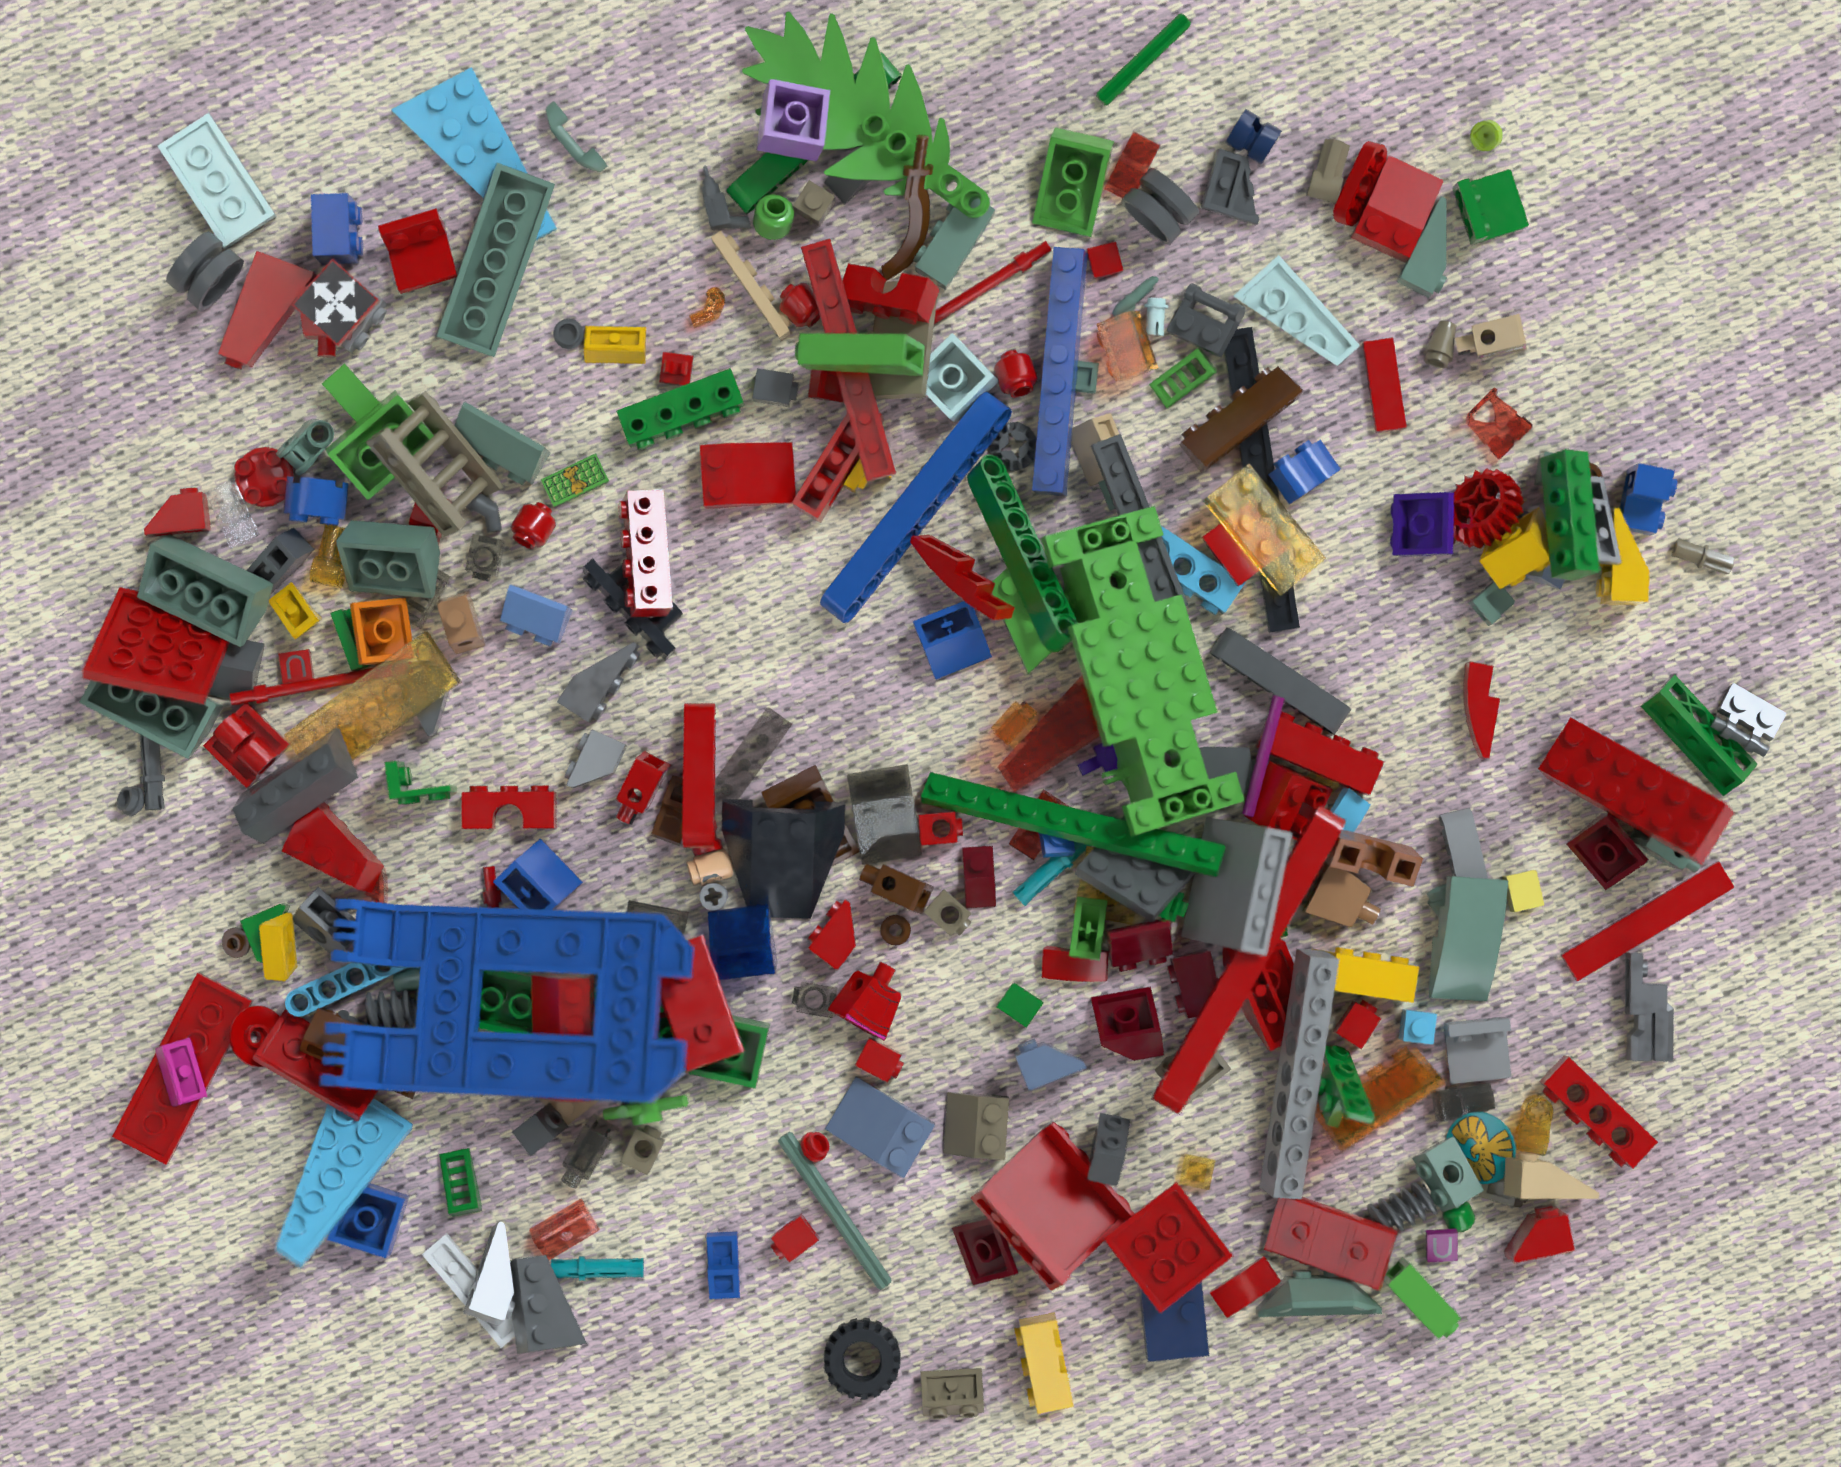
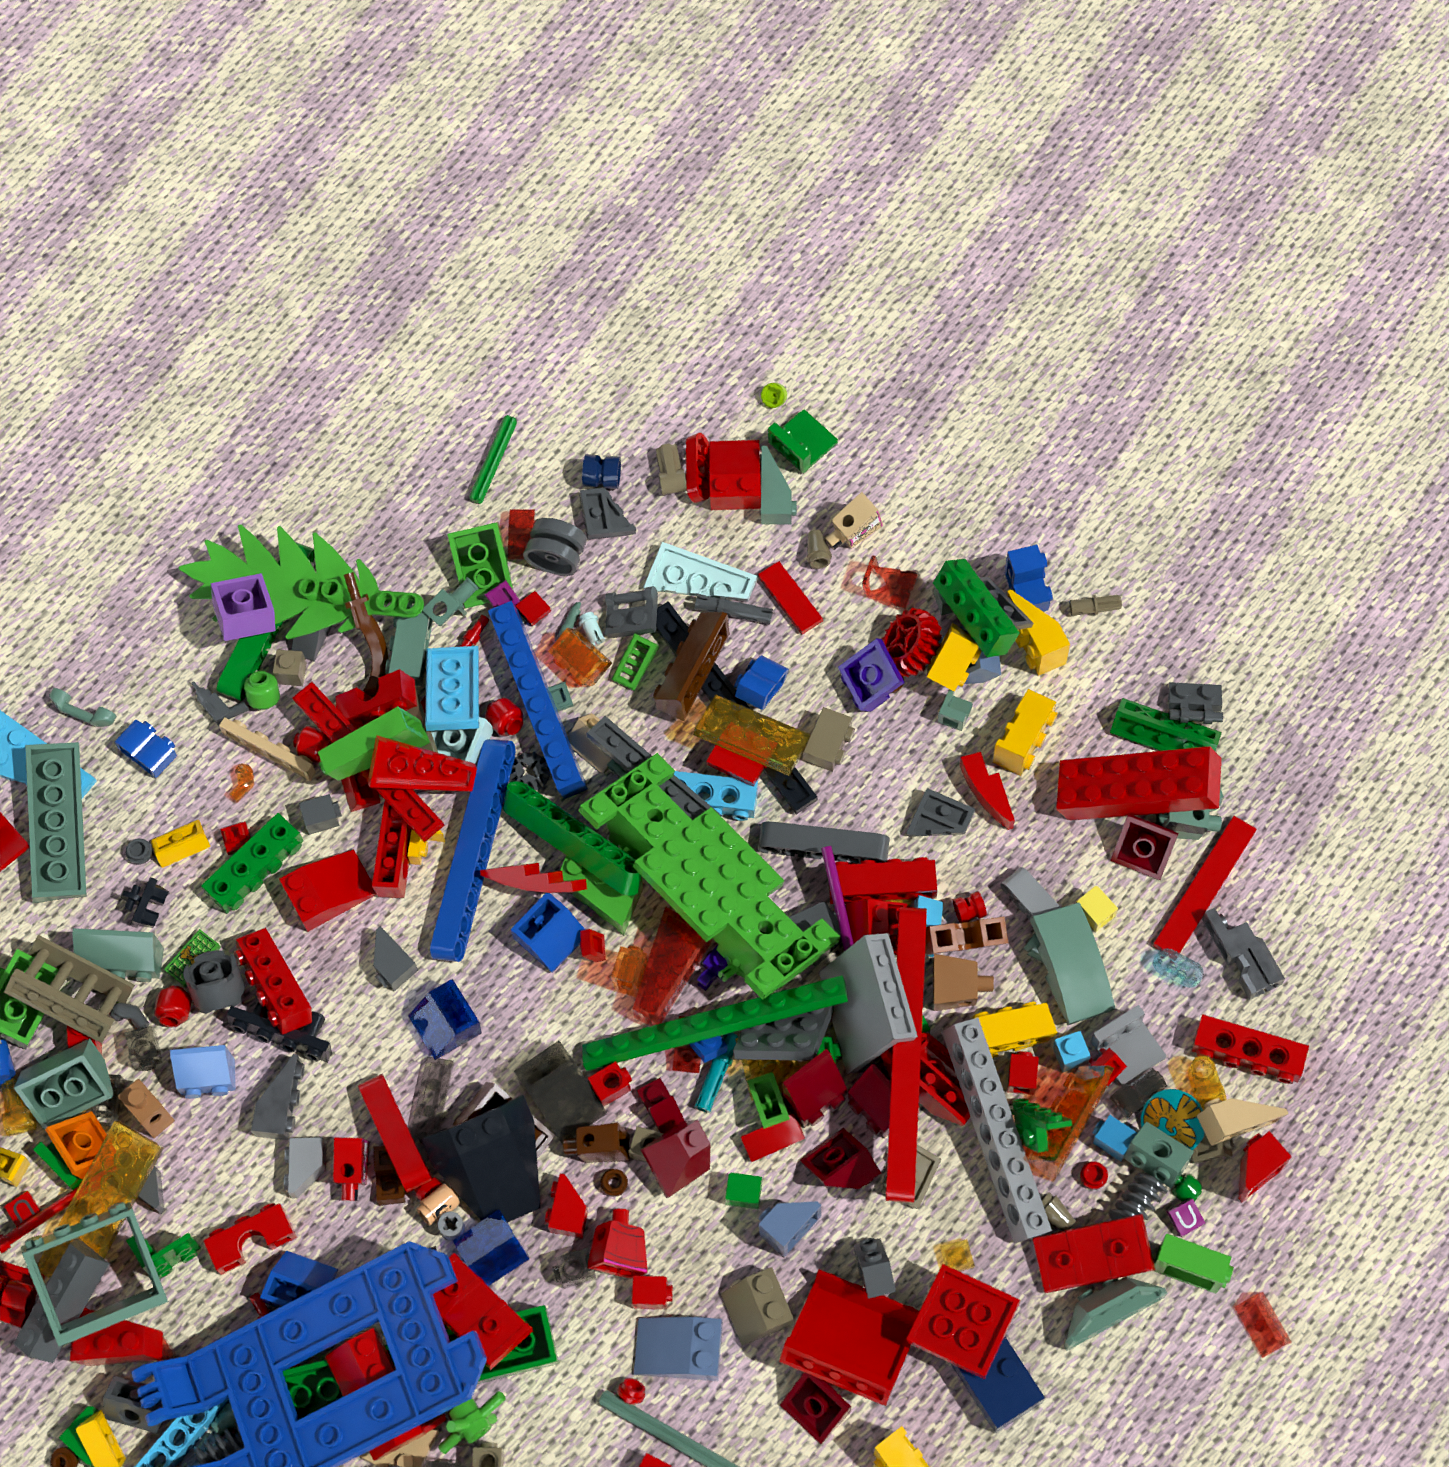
camera: 20 degrees left, 20 degrees down
(338, 832) = (108, 1315): none -> sand green window
(560, 387) = (151, 893): none -> black hips
(586, 524) = (214, 981): none -> dark grey brick
(624, 221) = (146, 748): none -> blue brick
(776, 588) = (391, 961): none -> dark grey slope
(802, 680) = (444, 1020): none -> clear blue slope
(893, 401) = (412, 767): none -> red wing
(970, 940) = (678, 1156): none -> dark red slope
(975, 320) = (452, 688): none -> medium azure tile
(990, 673) = (592, 945): none -> red plate
(1021, 214) = (453, 601): none -> sand green bracket
(1077, 232) = (502, 594): none -> magenta tile
(1245, 1287) = (1045, 1331): red slope -> none
(1317, 369) = (734, 609): none -> dark grey pin
(1317, 1178) = (1057, 1212): none -> dark tan cone
(1343, 569) = (828, 739): none -> dark tan brick
(1373, 1159) = (1094, 1175): none -> red plate
(1394, 824) = (969, 907): none -> red wheel
(1413, 1133) = (1113, 1137): none -> dark azure brick
(1416, 711) = (940, 816): none -> dark grey wing
(1446, 1061) = (1109, 1058): none -> red tile
(1459, 1384) = (1262, 1324): none -> clear red slope
(1552, 665) = (1025, 732): none -> yellow wedge
(1572, 993) = (1175, 973): none -> clear light blue beam

